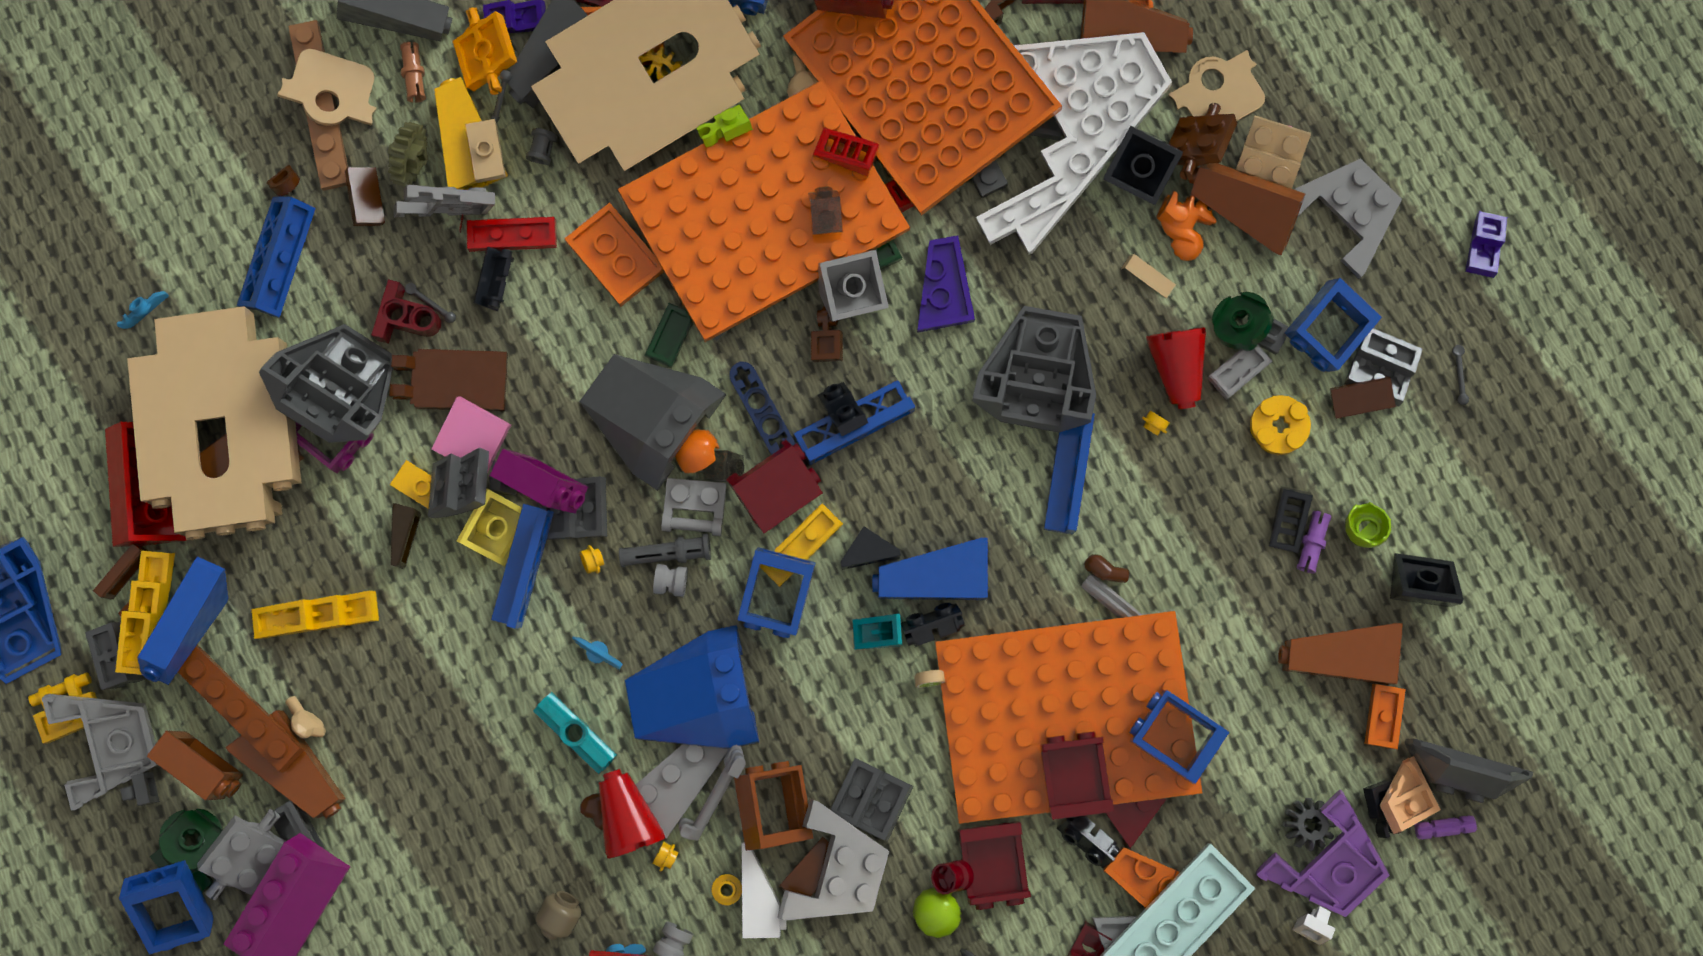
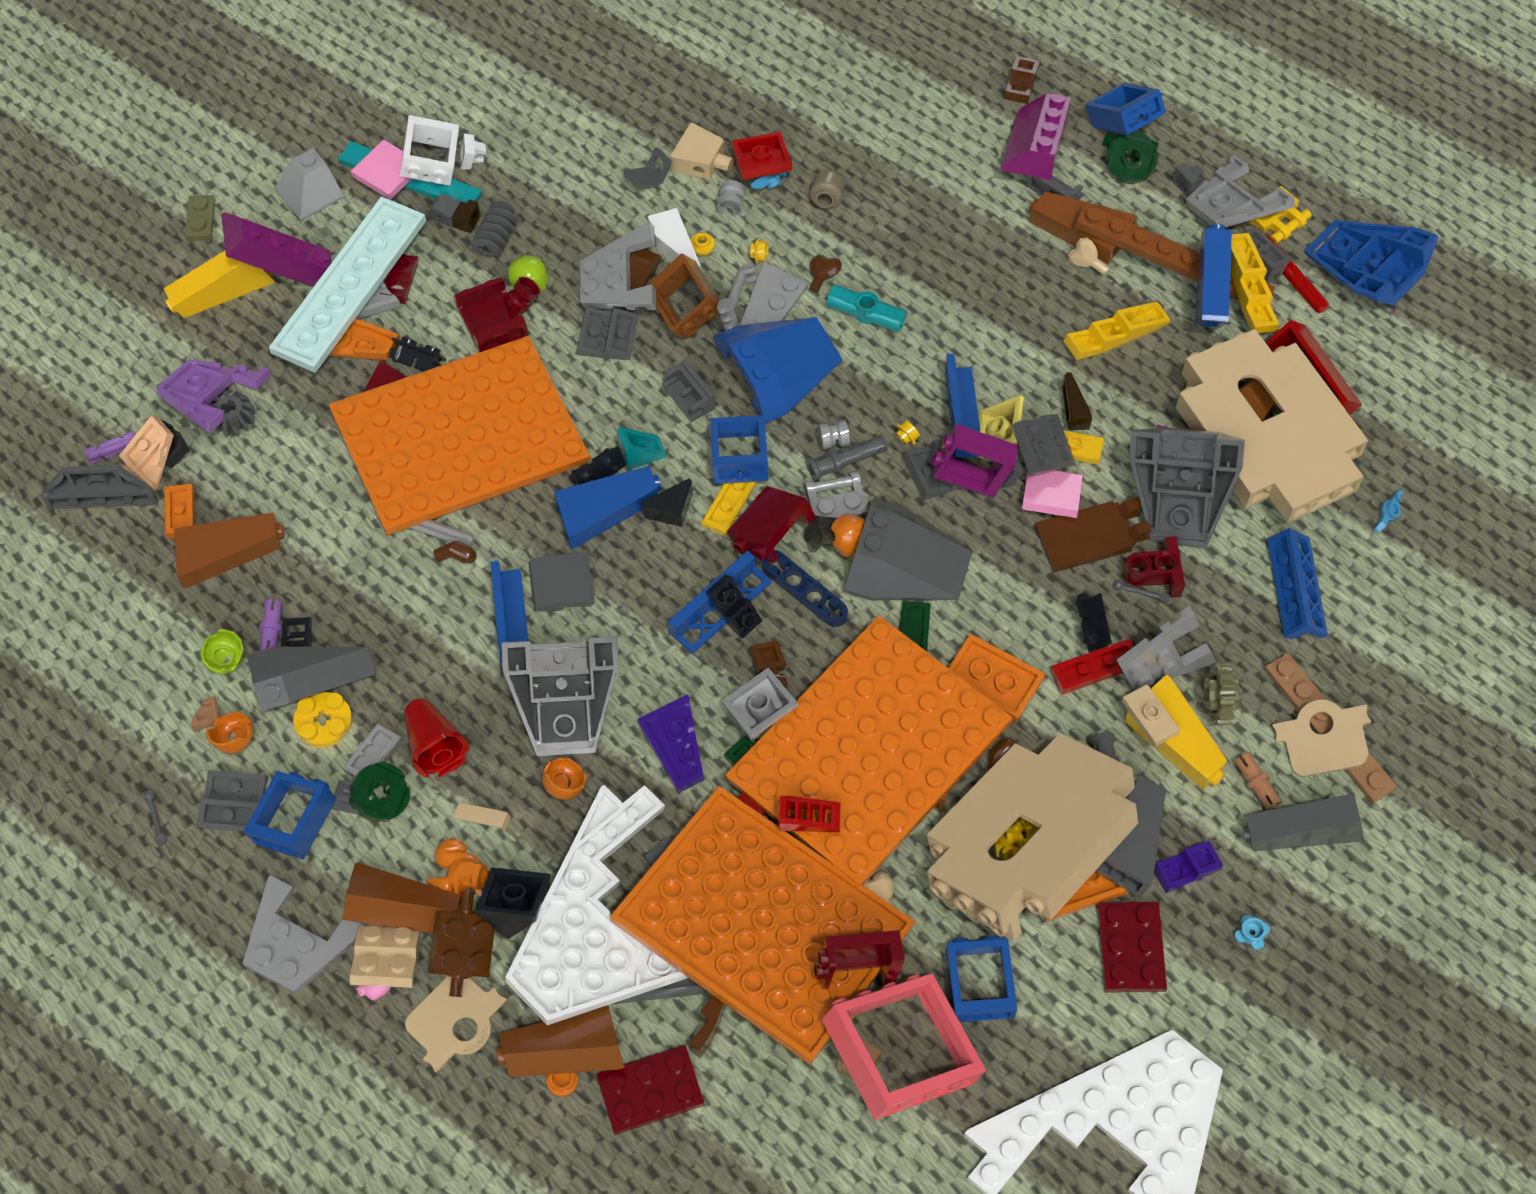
camera: 165 degrees right, 20 degrees down
(87, 614) = (1303, 285): none -> red axle
(120, 573) = (1290, 305): reddish brown tile -> none
(195, 765) = (1155, 184): dark orange window -> none
(241, 855) = (1086, 156): light grey plate -> none
(284, 181) = (1323, 647): reddish brown tile -> none
(364, 196) = (1244, 657): reddish brown tile -> none
(484, 51) = (1198, 814): light orange plate -> none
(505, 76) = (1164, 789): dark grey hinge -> none
(597, 652) = (873, 370): dark azure piece -> none
(625, 816) = (798, 255): red cone -> none
(649, 165) = (999, 750): none -> reddish brown arm
(727, 124) = (931, 804): lime plate -> none
(806, 688) = (688, 391): none -> dark grey hinge
(825, 210) = (810, 752): clear smoke bracket -> none
(929, 678) = (586, 426): tan tile -> none
(1006, 499) = (561, 582): none -> dark grey slope
(1070, 276) = (556, 778): none -> orange hair
(1076, 776) = (438, 379): dark red panel -> none
(1155, 423) = (441, 681): yellow plate -> none
(1204, 754) = (354, 404): blue window -> none
(1298, 468) = (294, 673): none -> dark grey wedge
(1315, 926) = (212, 345): white tile -> none
(1362, 397) = (248, 760): reddish brown tile -> none
(1385, 430) = (220, 733): none -> orange hair
(1393, 467) = (205, 715): none -> medium nougat tile
(1425, 581) = (160, 622): black slope -> none
(1485, 244) = (147, 948): dark purple slope -> none

